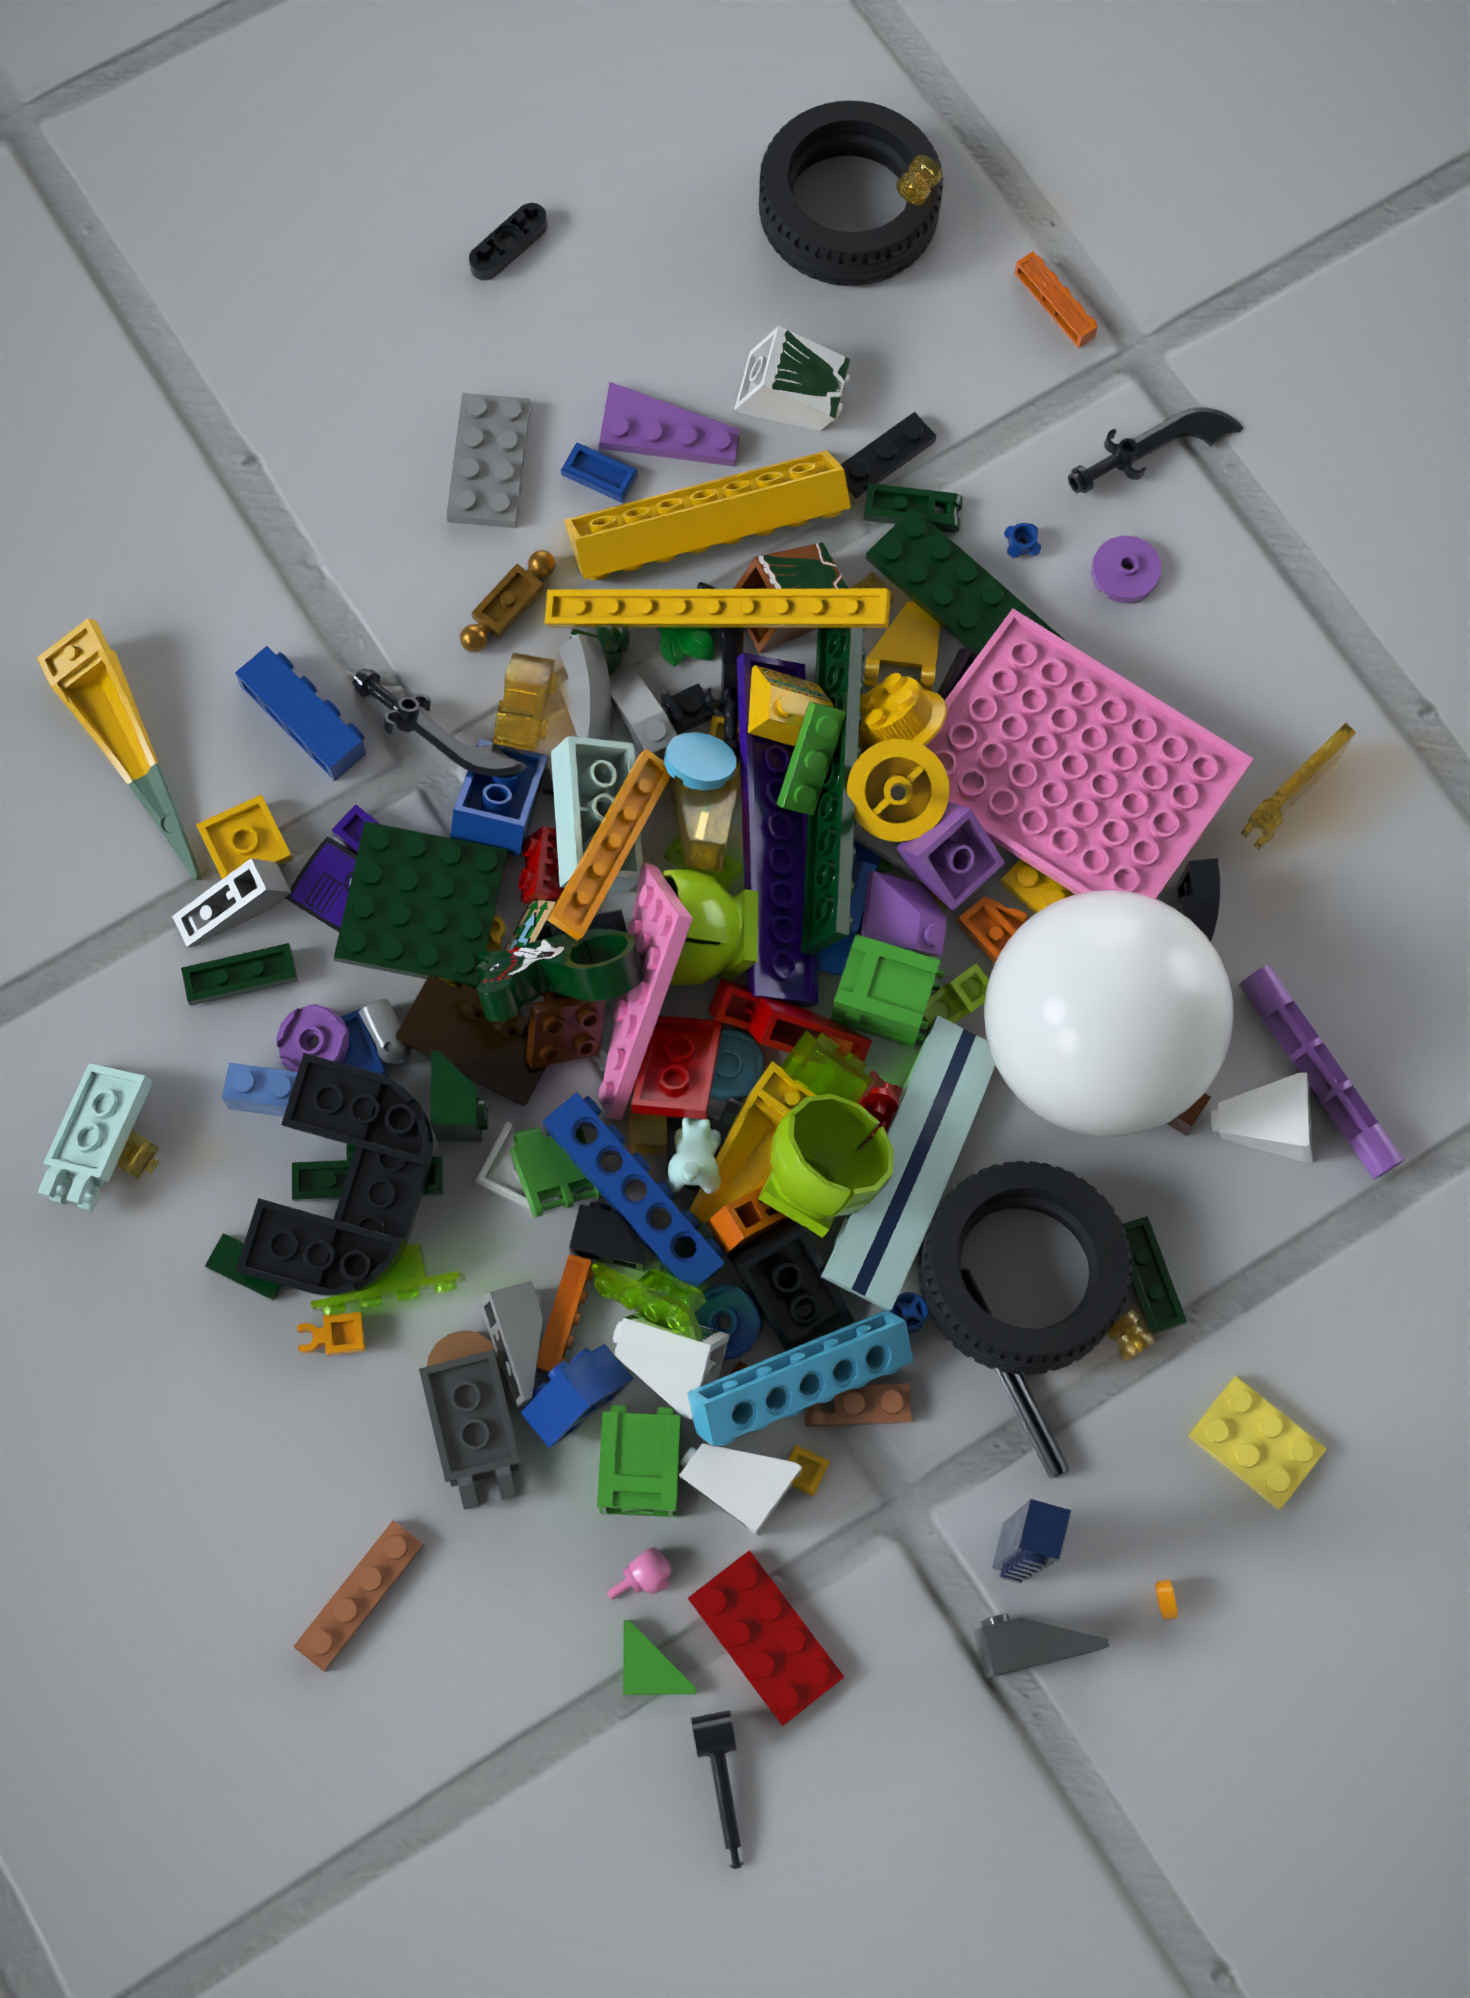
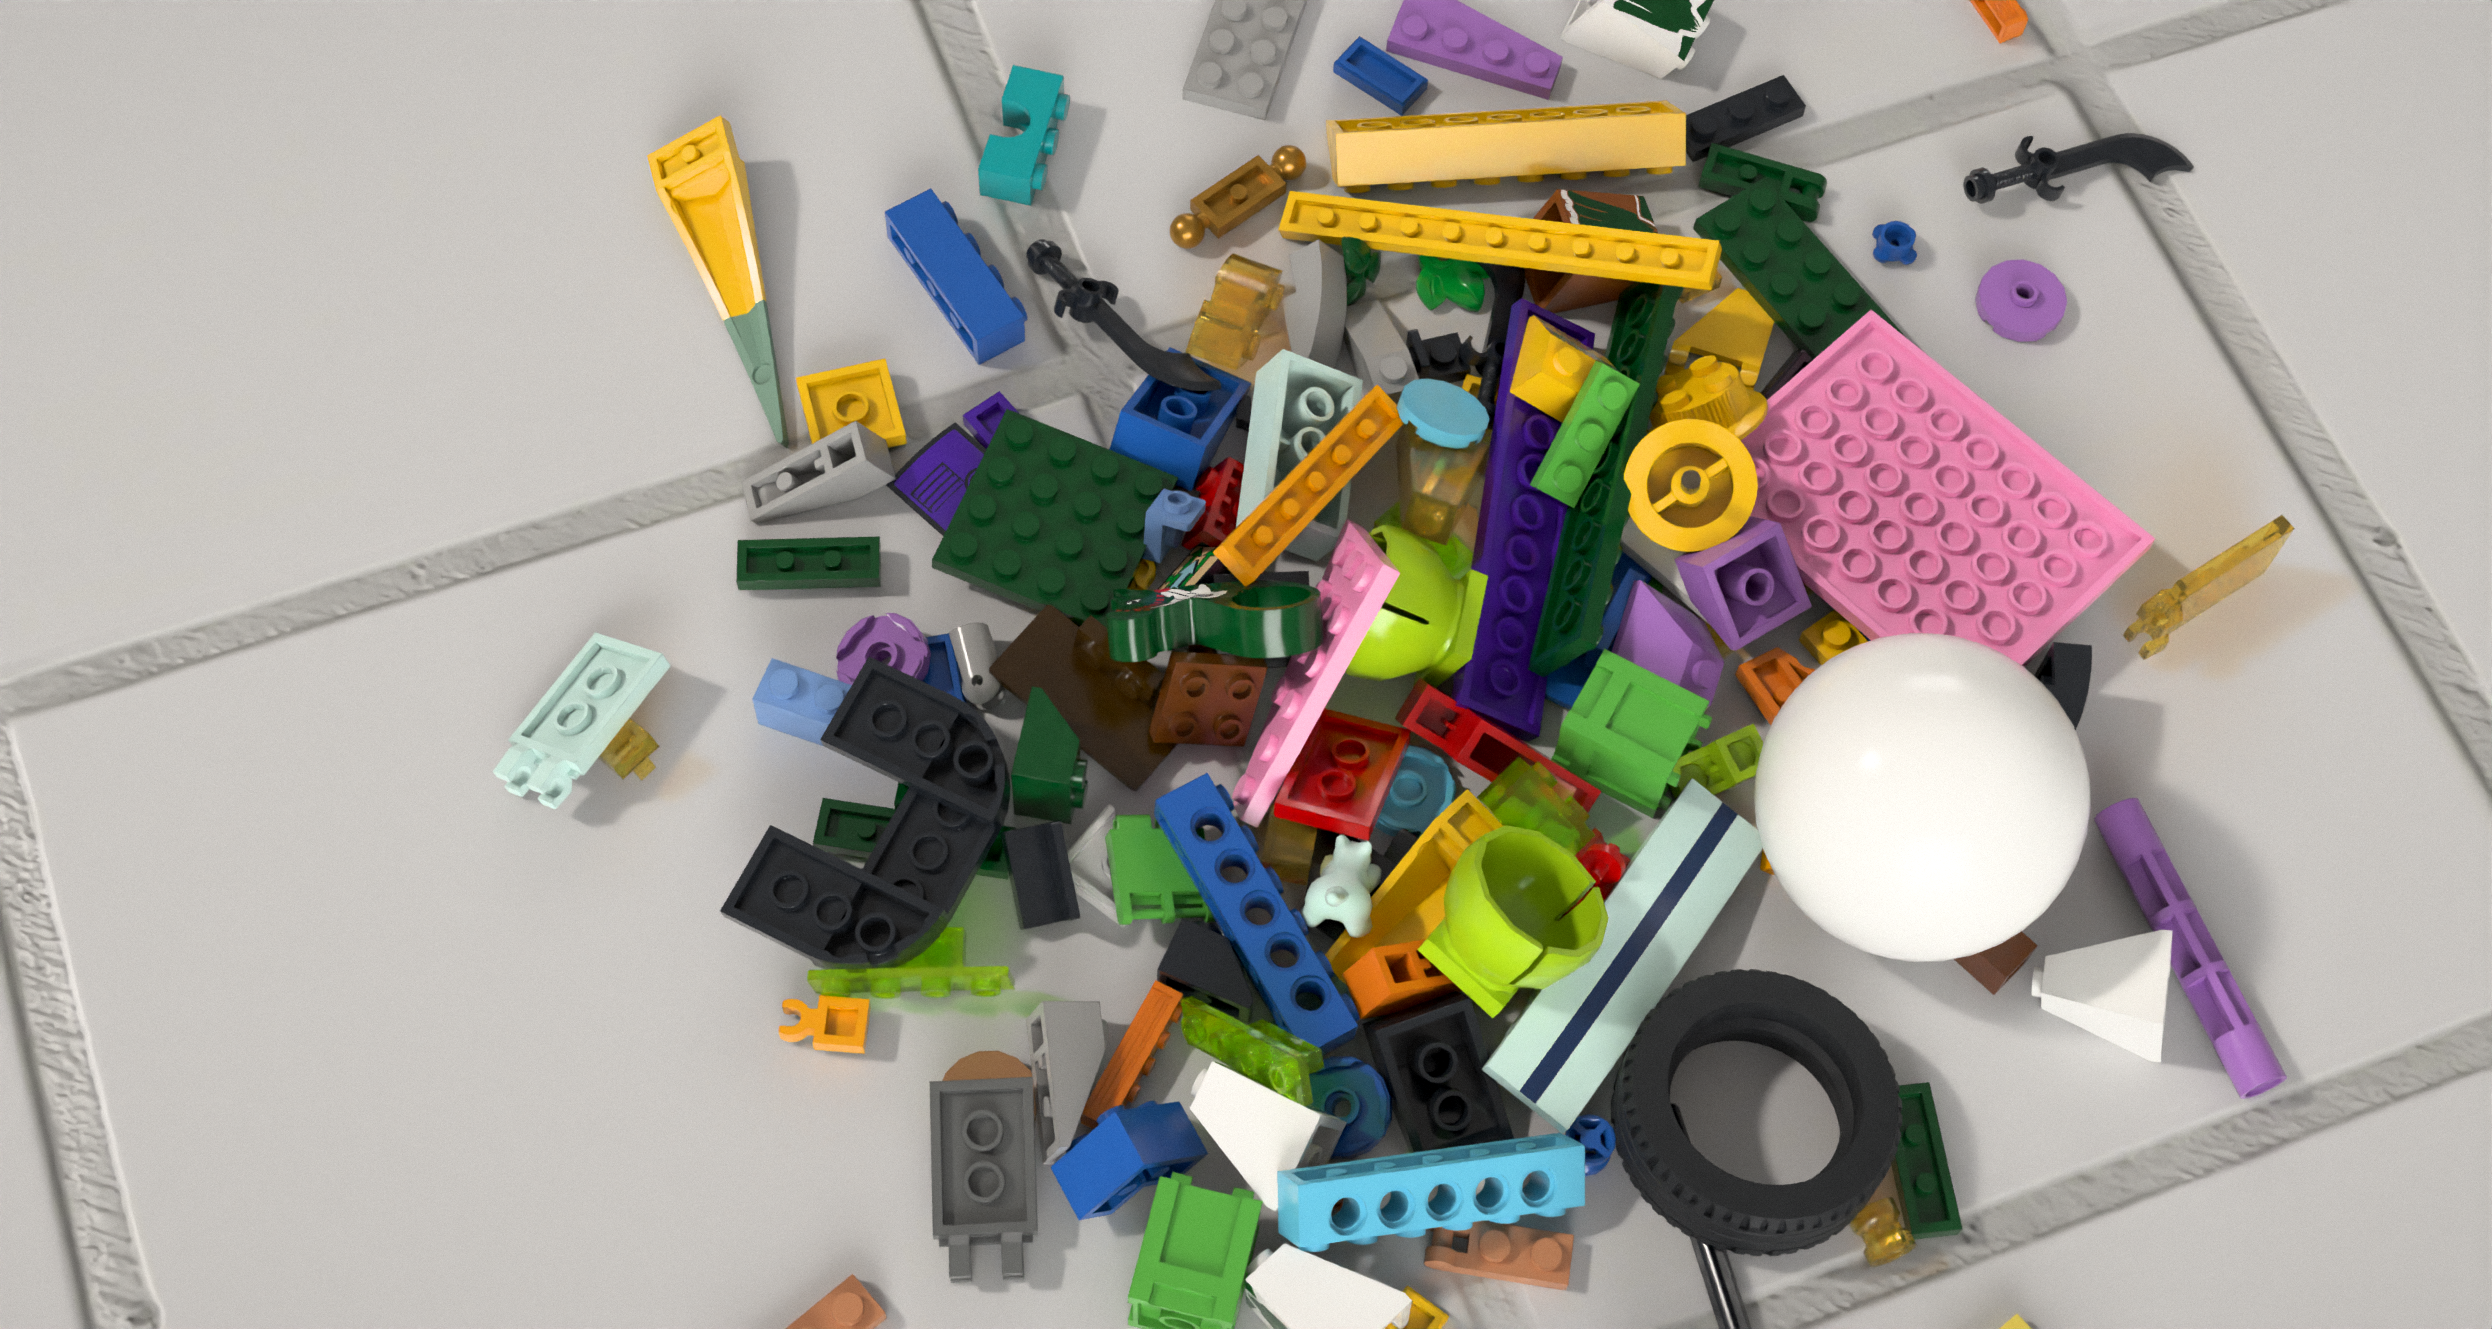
camera: 10 degrees right, 10 degrees down
(225, 1260) = (705, 908): dark green plate -> none
(328, 609) = (1016, 165): none -> teal arch
(467, 1190) = (1040, 875): none -> black panel
(507, 887) = (1167, 520): none -> medium blue bracket

